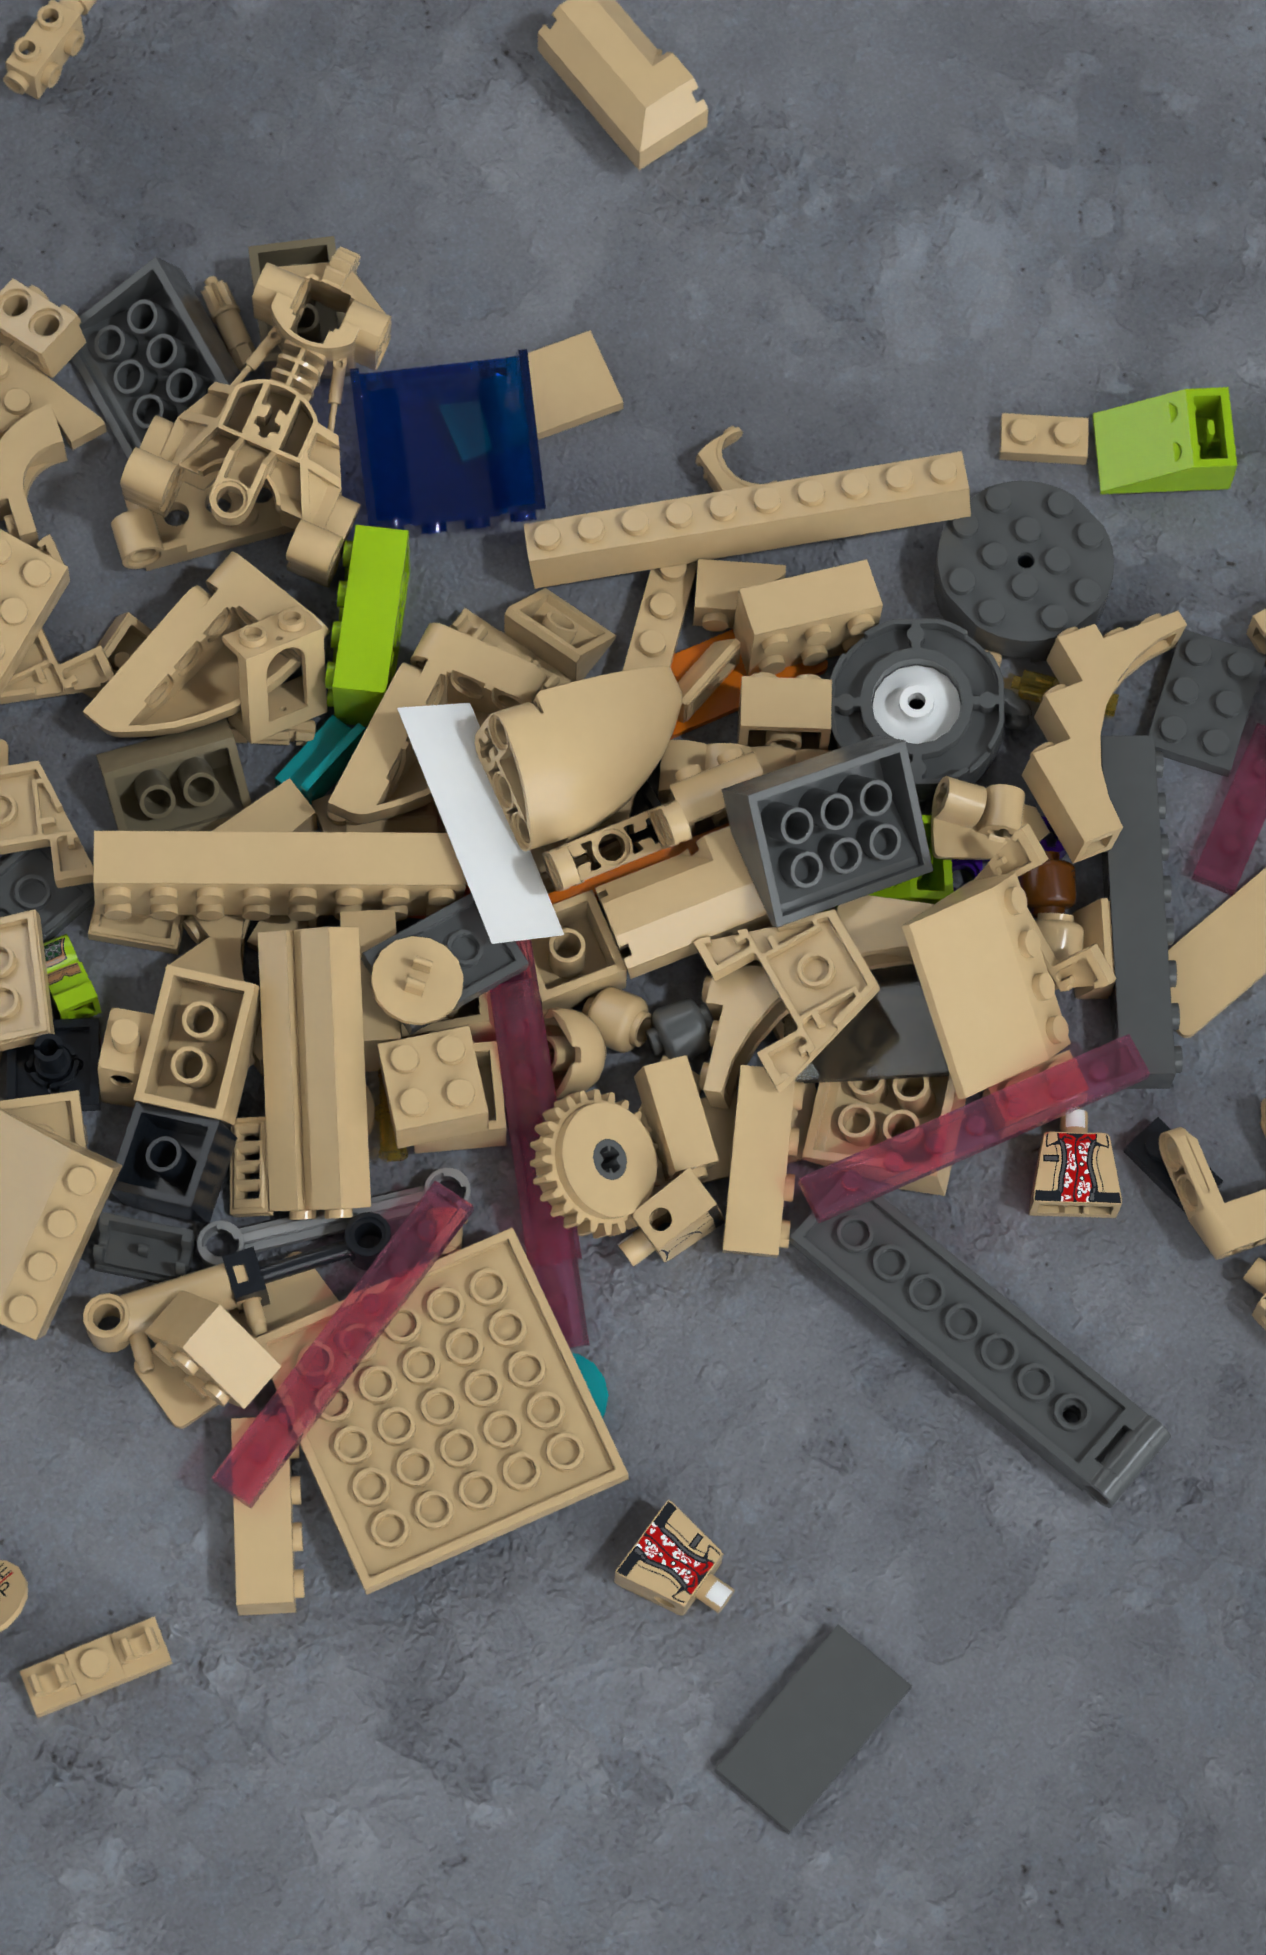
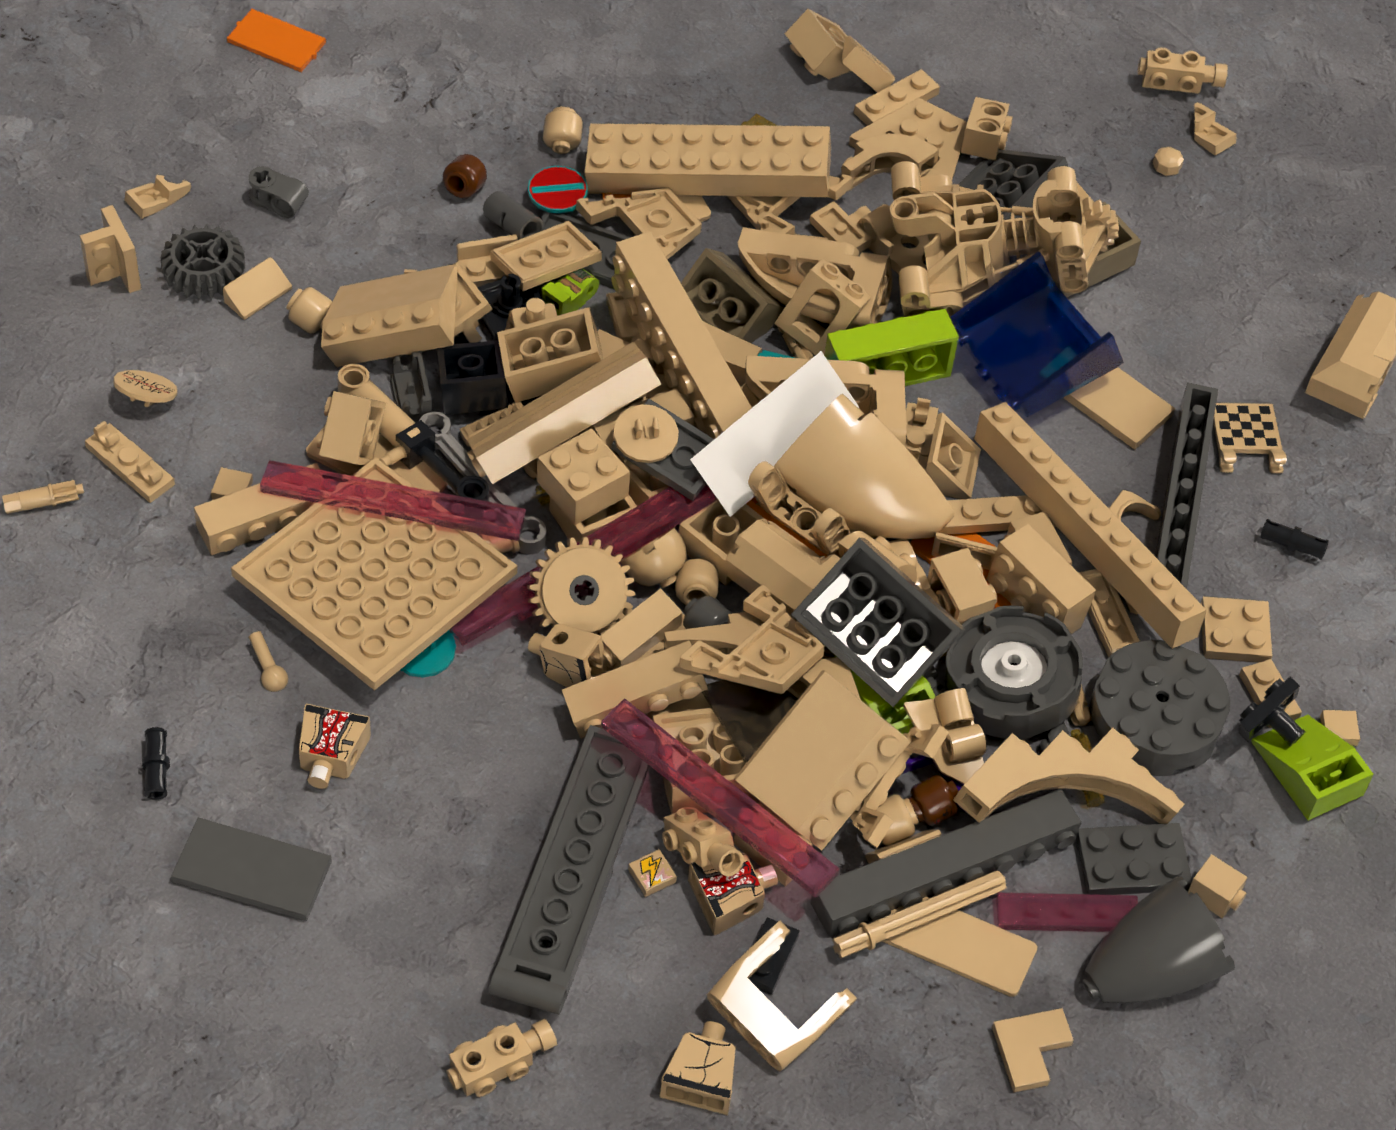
camera: 65 degrees right, 15 degrees down
(109, 1802) = (42, 496): none -> tan piece
(116, 587) = (841, 227): none -> tan plate
(155, 59) = (1209, 133): none -> tan slope
(183, 133) = (1168, 161): none -> tan tile
(198, 1544) = (230, 481): none -> tan tile
(530, 1599) = (273, 676): none -> tan bar
(611, 1794) = (155, 763): none -> black pin
(657, 265) = (1247, 430): none -> tan flag
(724, 379) = (1186, 480): none -> dark grey brick
(844, 297) = (1294, 539): none -> black pin
(891, 564) = (1109, 614): none -> tan tile
(938, 423) = (1236, 629): none -> tan plate
(1009, 1252) = (652, 873): none -> tan tile
(1011, 1175) = (701, 841): none -> tan brick
(1099, 452) = (1272, 713): none -> black plate
(1121, 385) = (1342, 724): none -> tan tile
(1191, 975) = (906, 919): none -> tan axle
(1193, 1536) = (495, 1060): none -> tan brick

